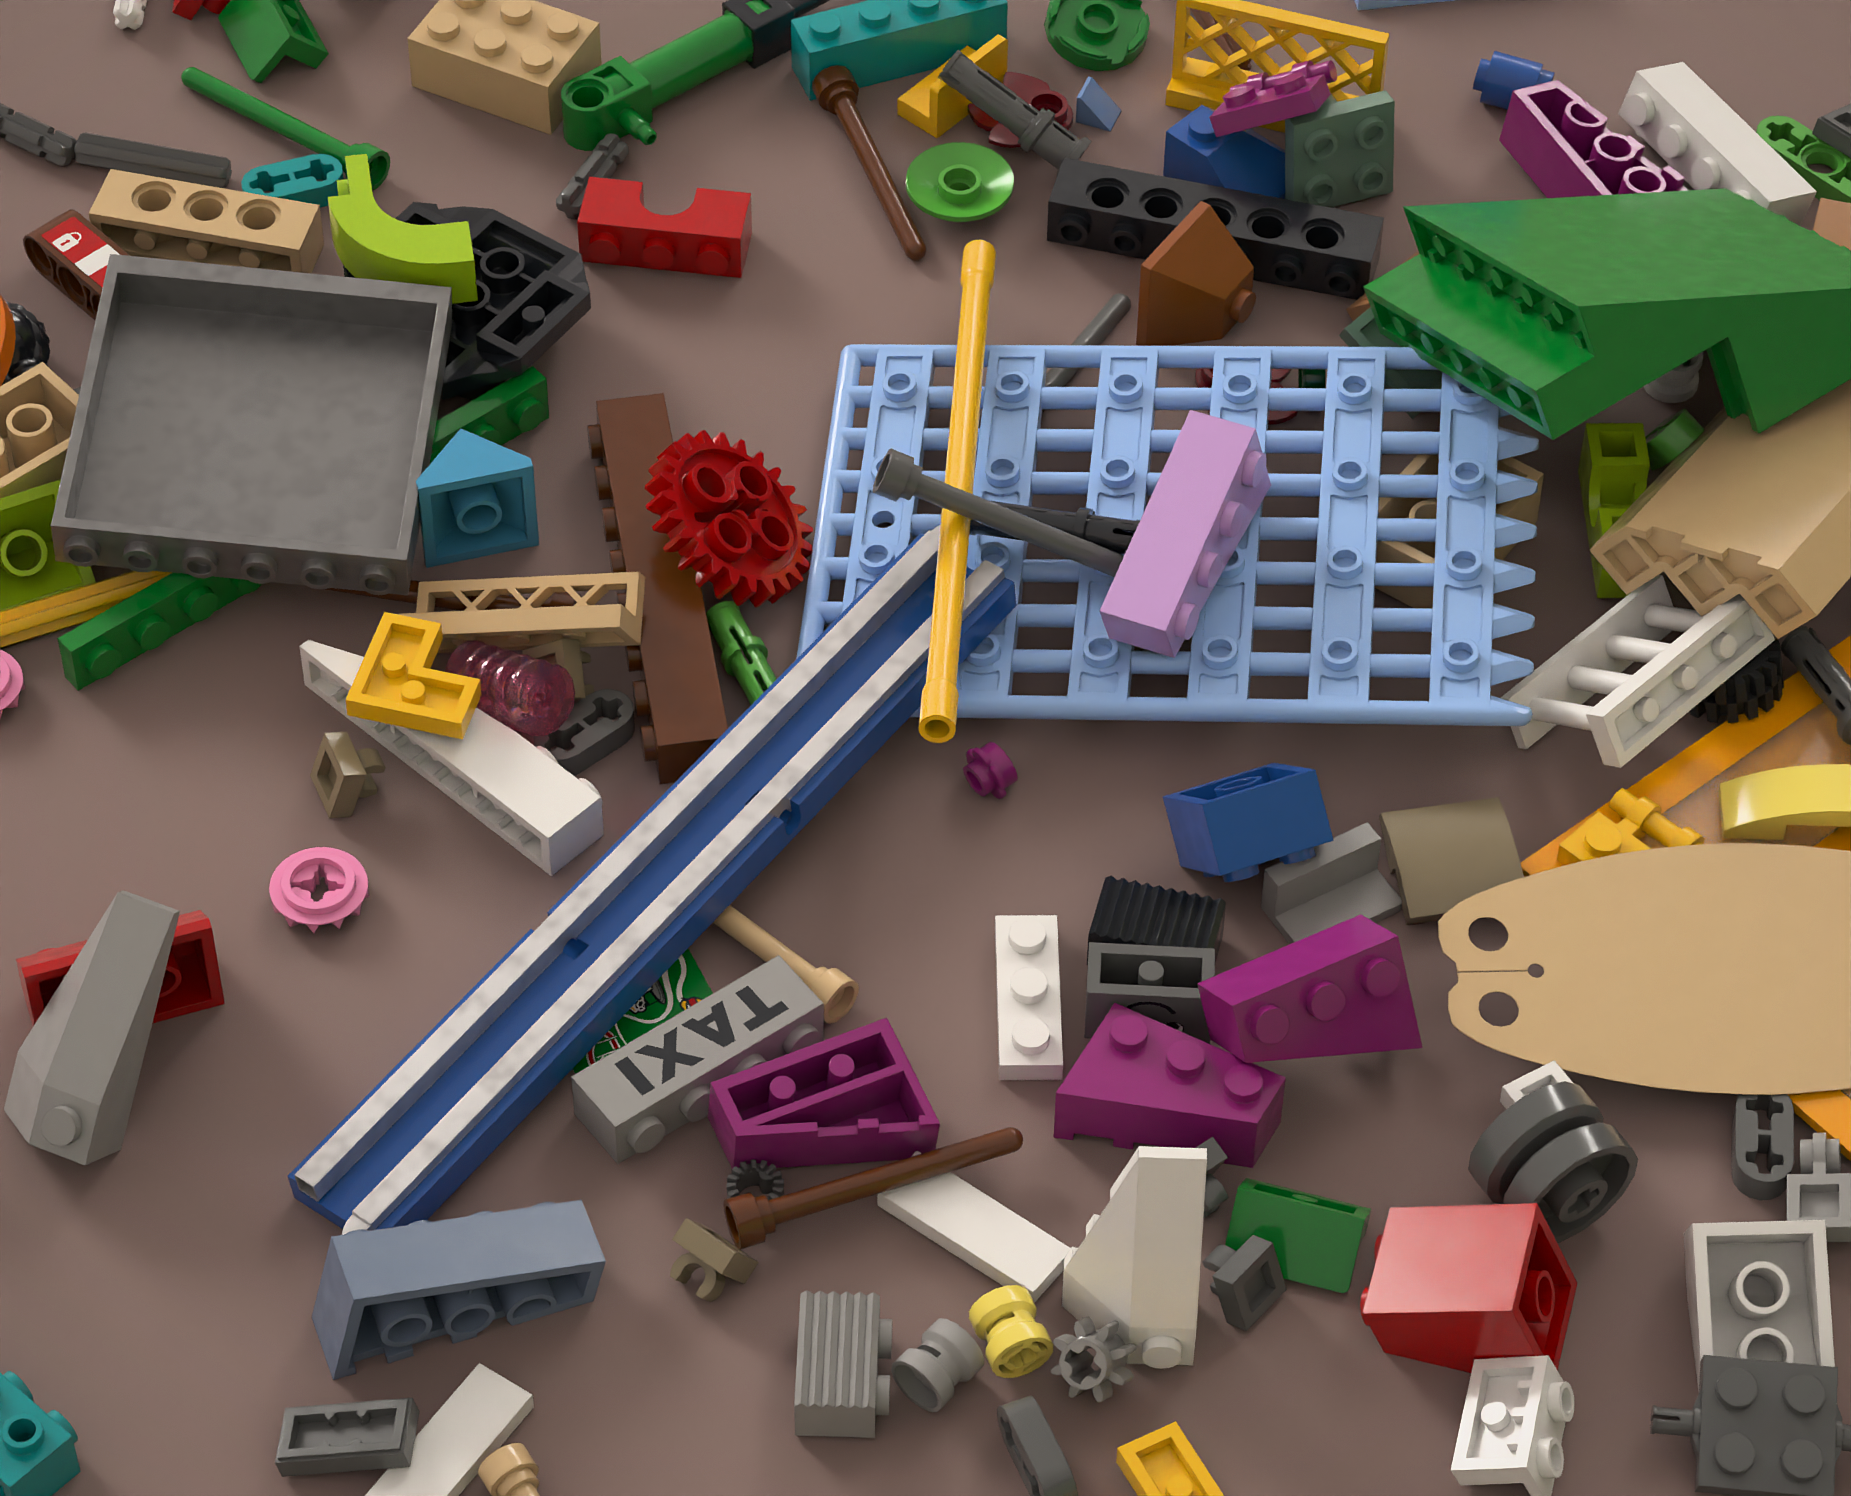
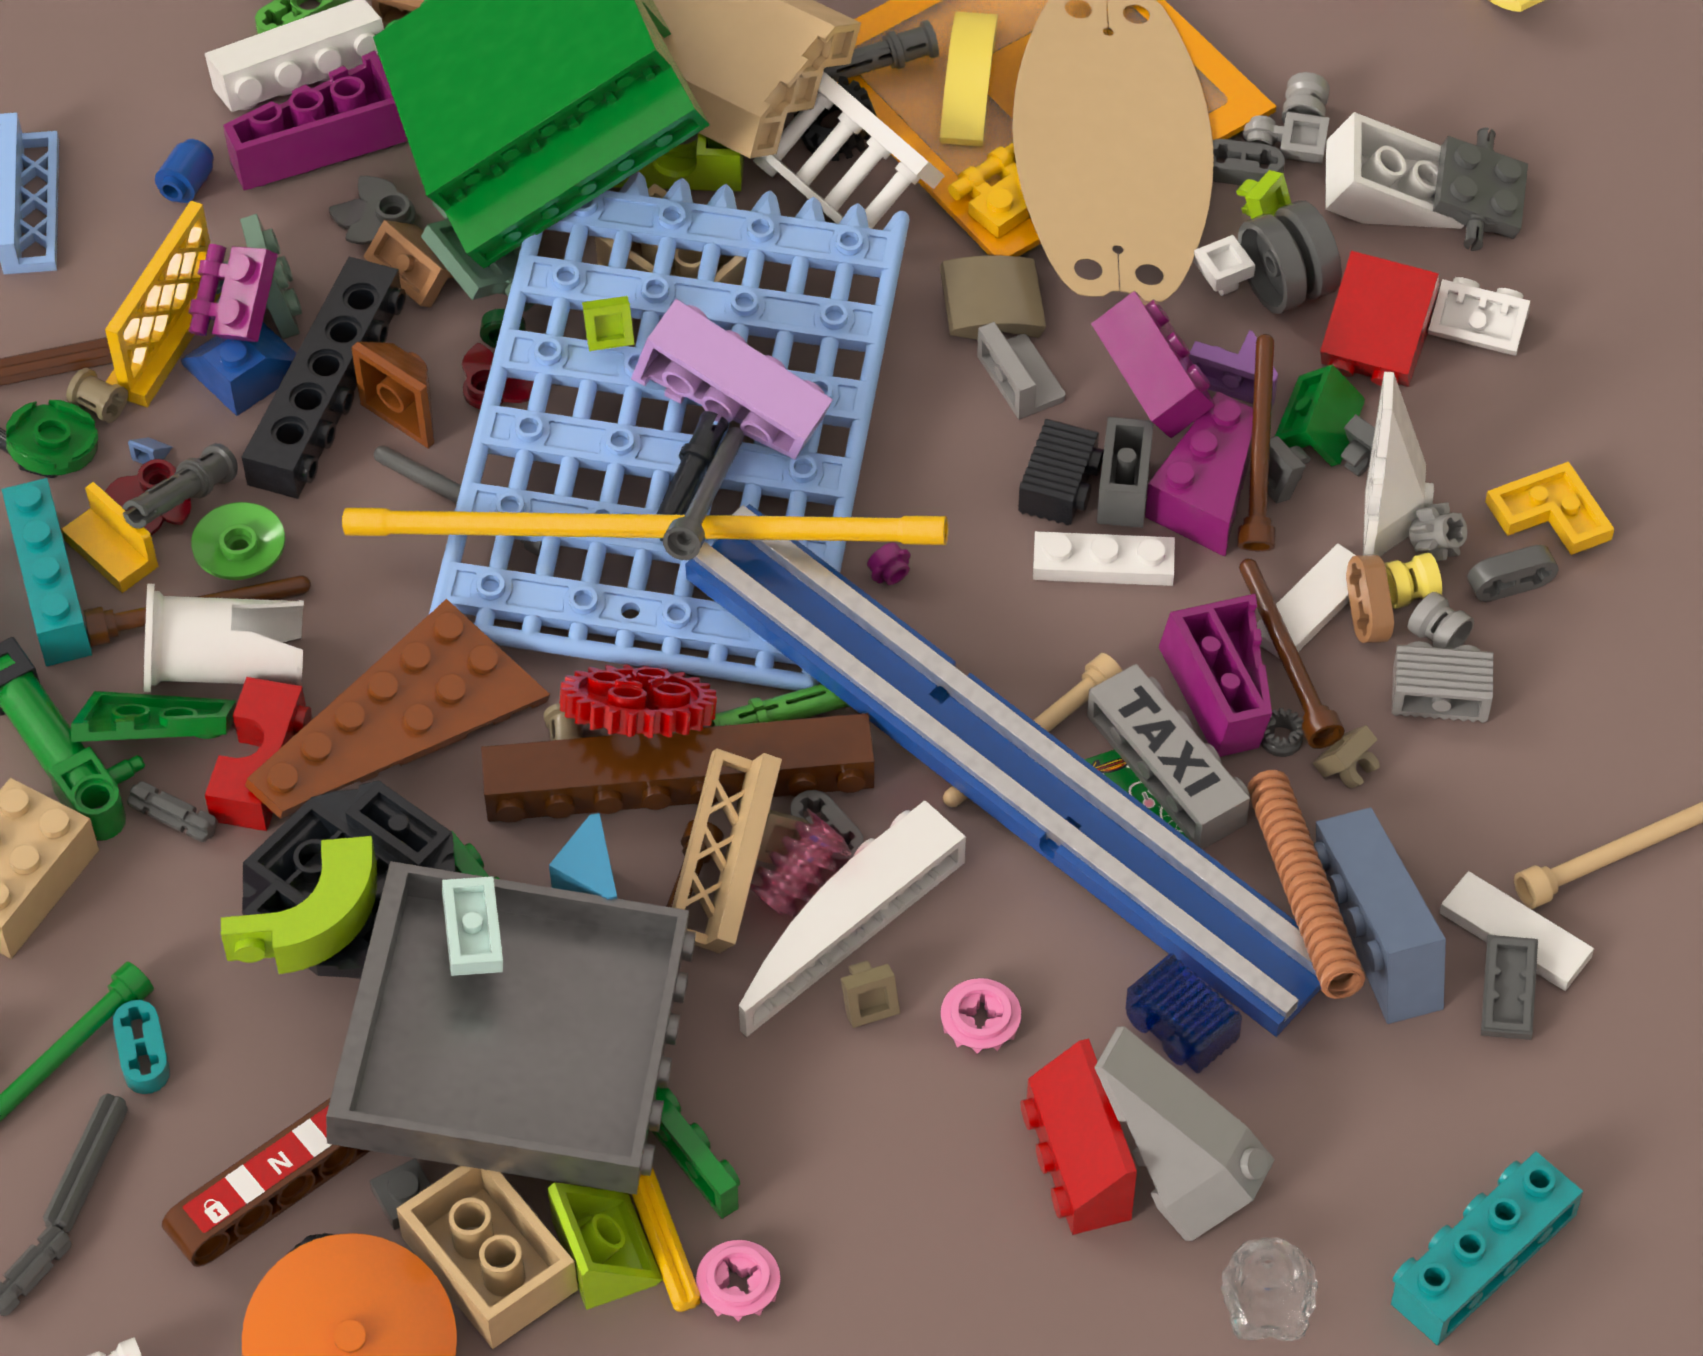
camera: 85 degrees left, 5 degrees up
(207, 223) = (216, 1036): tan brick -> none
(308, 1080) = (1182, 1014): none -> clear blue brick
(357, 353) = (472, 926): none -> light aqua plate
(402, 689) = (811, 929): yellow plate -> none
(478, 1182) = (1306, 885): none -> nougat piece
(703, 125) = (151, 716): none -> green wing
(730, 337) = (408, 704): none -> dark orange wing
(800, 152) = (221, 640): none -> white piece
(966, 1274) = (1370, 599): none -> medium nougat beam
(1079, 1152) = (1256, 532): none -> reddish brown piece
(1154, 57) = (97, 395): none -> dark tan bush
(1248, 821) = (976, 393): blue brick -> none
(1272, 415) = (608, 323): none -> lime tile
(1363, 1136) = (1230, 371): none -> medium lavender slope
(1680, 1160) = (1265, 195): none -> lime tile

